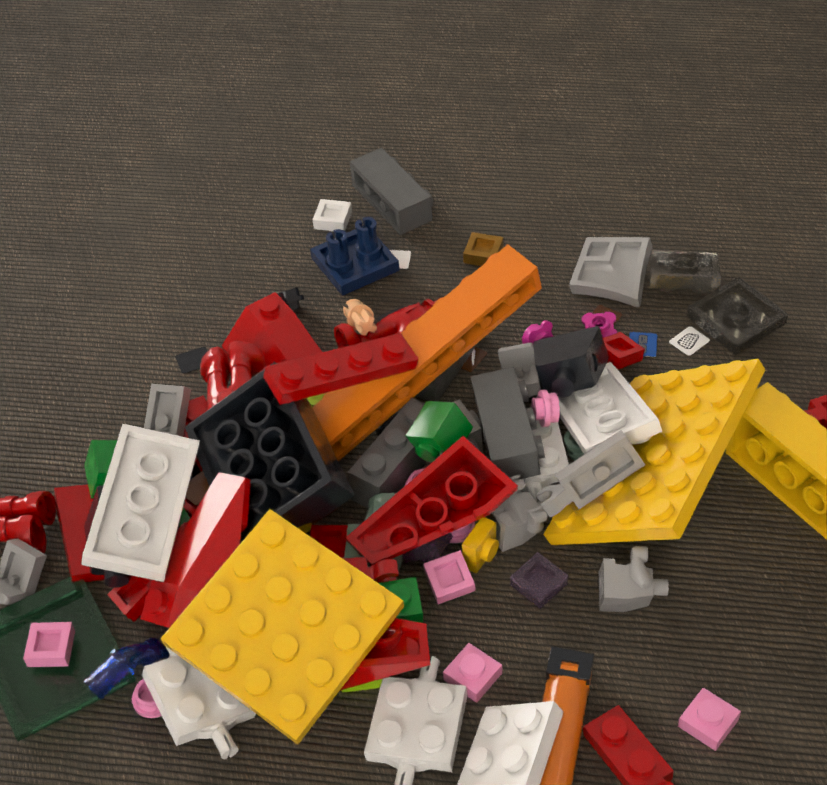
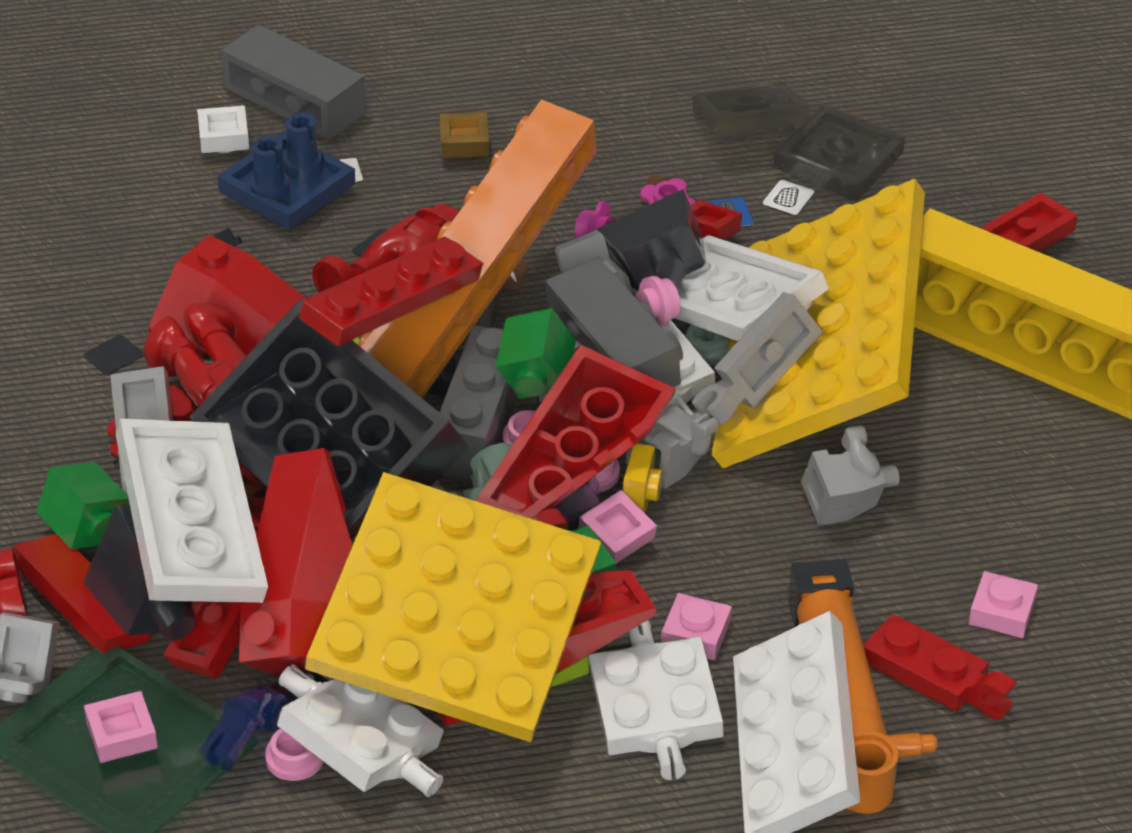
camera: 25 degrees left, 5 degrees down
(359, 316) = (340, 243): light nougat axle -> none
(539, 580) = (732, 505): plate -> none
(612, 268) = (652, 125): light grey plate -> none

